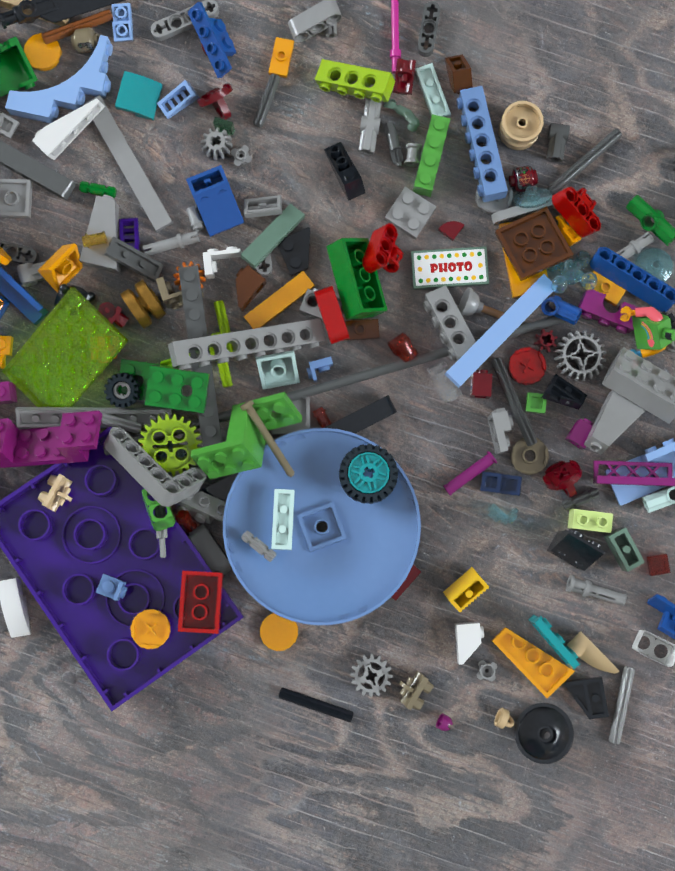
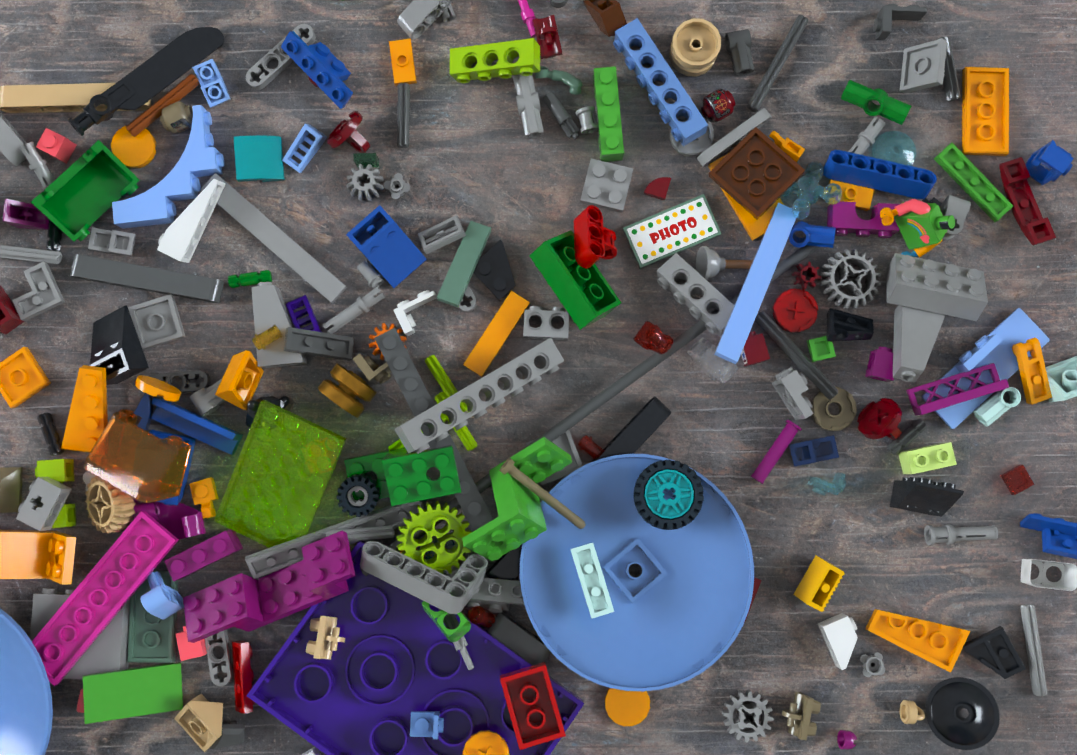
camera: 20 degrees left, 0 degrees up
(113, 314) = (317, 413): dark red hips -> none
(248, 286) = (456, 329): reddish brown slope -> none
(258, 546) = (575, 620): light grey axle -> none
(278, 369) = (523, 411): light aqua slope -> none
(322, 365) = (569, 389): medium blue bracket -> none
(331, 315) = (562, 330): red beam -> none
(345, 171) = (518, 164): black slope -> none
(363, 329) = (597, 334): reddish brown plate -> none
(432, 91) = (583, 42): light aqua tile -> none
(532, 197) = (736, 122): clear light blue dish -> none
(554, 640) = (938, 606): teal plate -> none
(577, 210) = (791, 120): red piece -> none
(591, 654) = (979, 605): tan piece -> none
(624, 549) = (976, 477): sand green brick -> none

